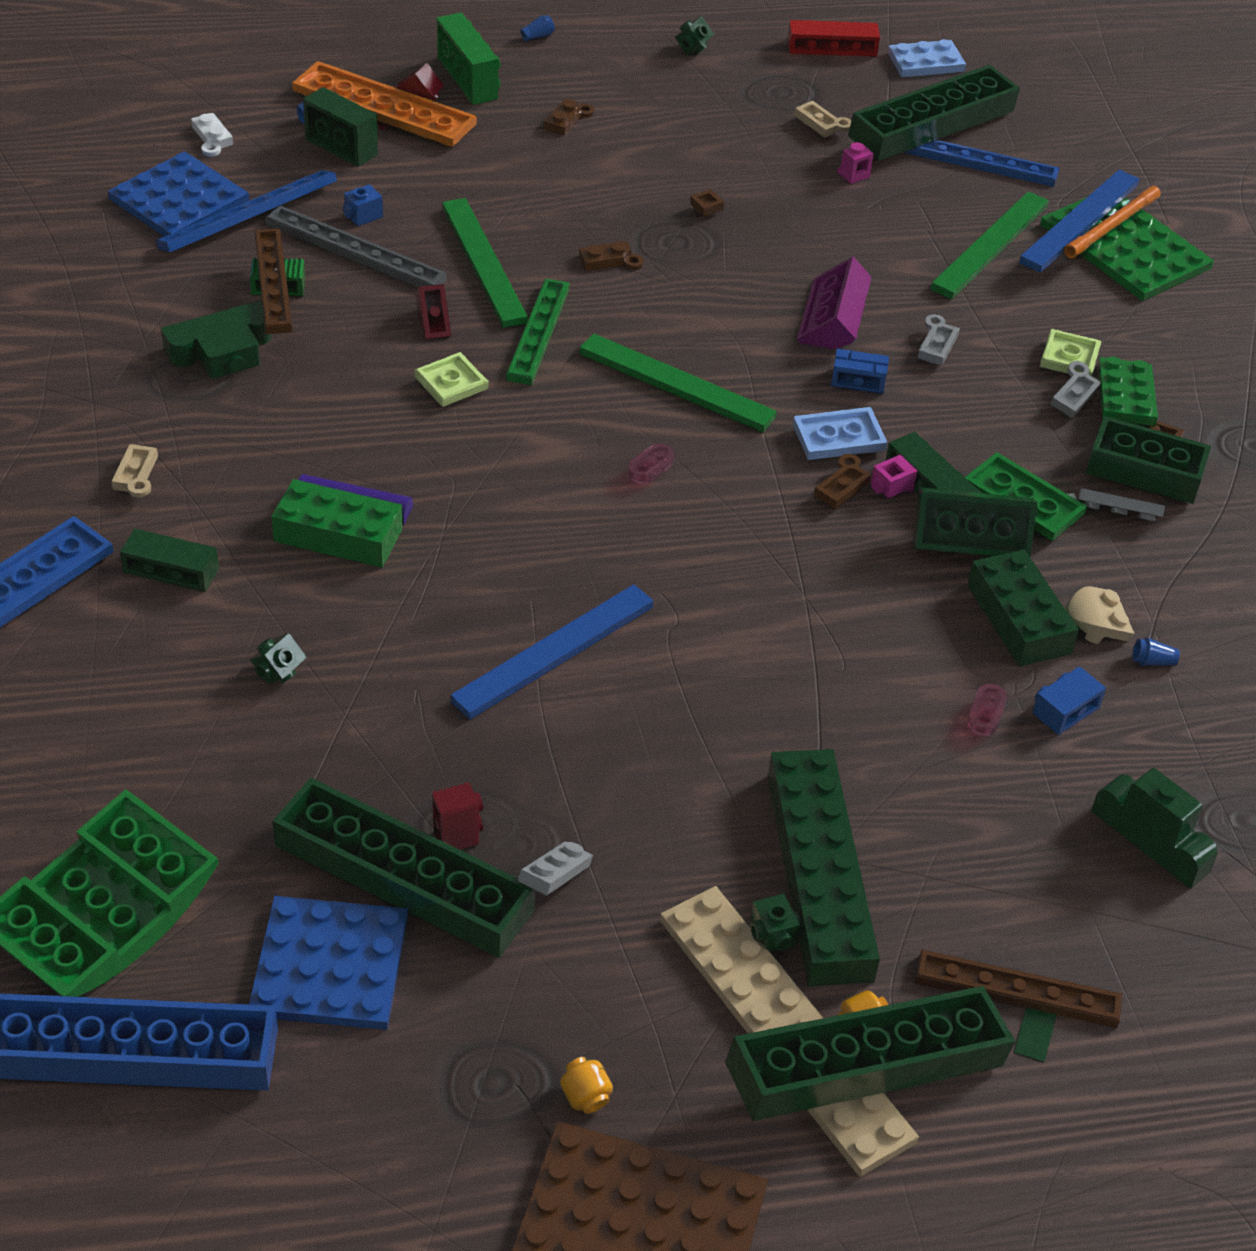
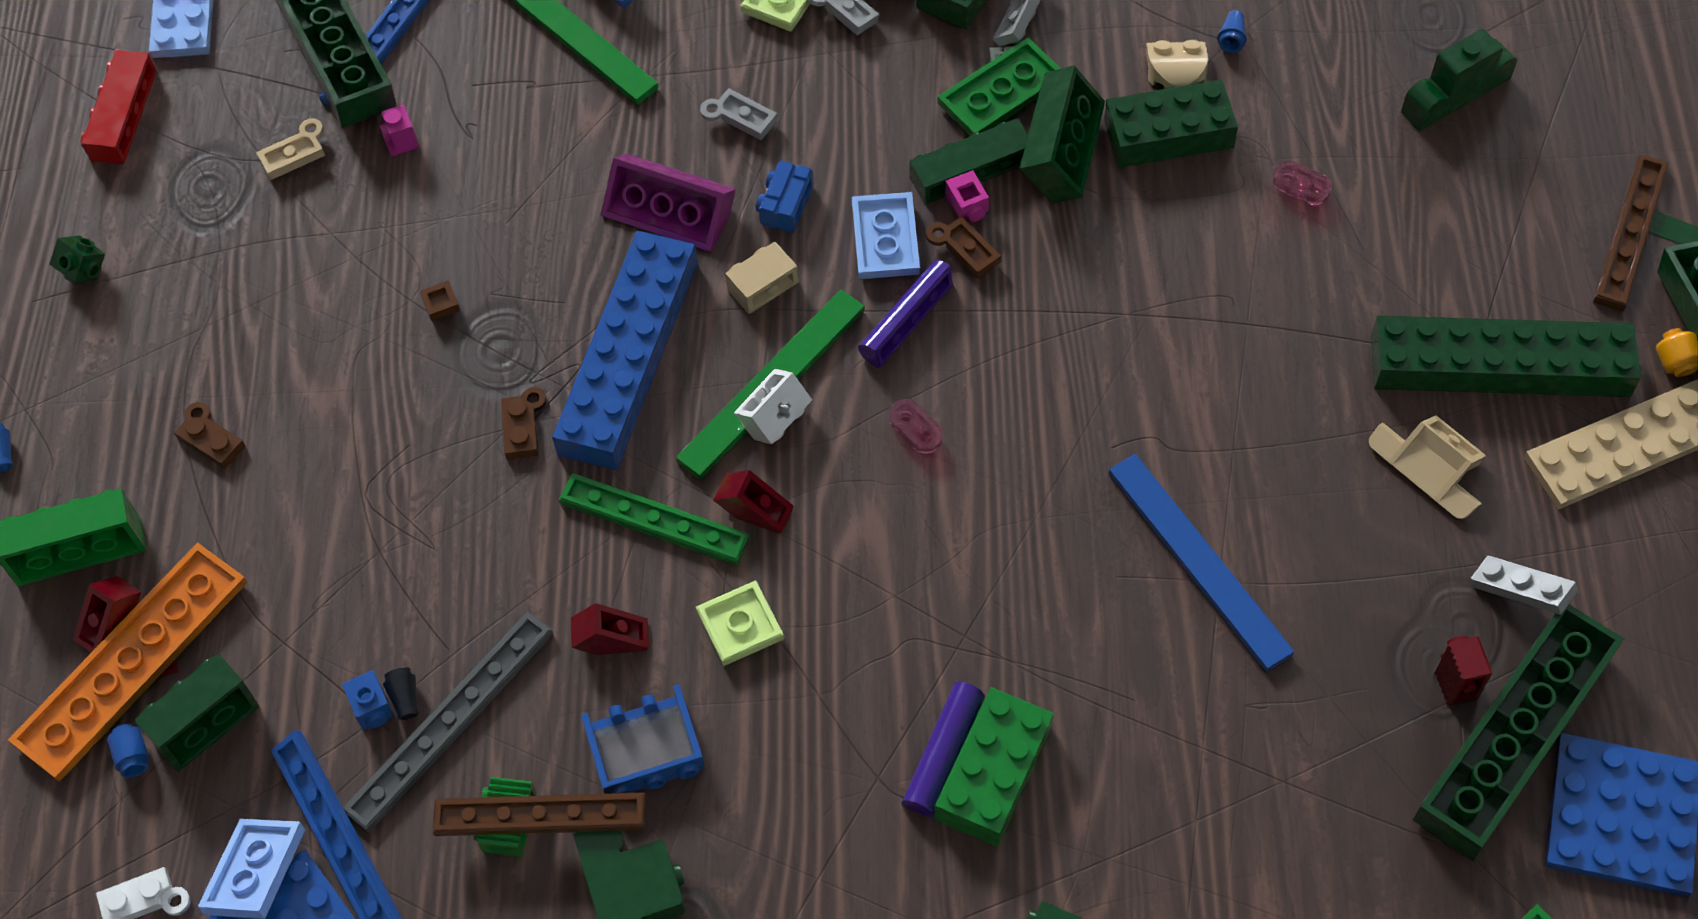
camera: 75 degrees left, 15 degrees up
(228, 166) = (251, 868): none -> light blue plate
(277, 658) = (1218, 842): dark green brick -> none
(341, 336) = (644, 745): none -> window
(373, 220) = (401, 689): none -> black cone
(484, 263) = (505, 567): green tile -> none
(559, 375) = (753, 501): none -> dark red slope
(661, 375) = (773, 406): none -> white brick
(685, 295) = (625, 351): none -> blue brick
(695, 810) = (1433, 460): none -> tan plate
(763, 451) = (906, 314): none -> dark purple brick
(774, 363) = (761, 277): none -> tan brick
(775, 923) = (1580, 405): dark green brick -> none
(1068, 700) = (1295, 113): blue brick -> none

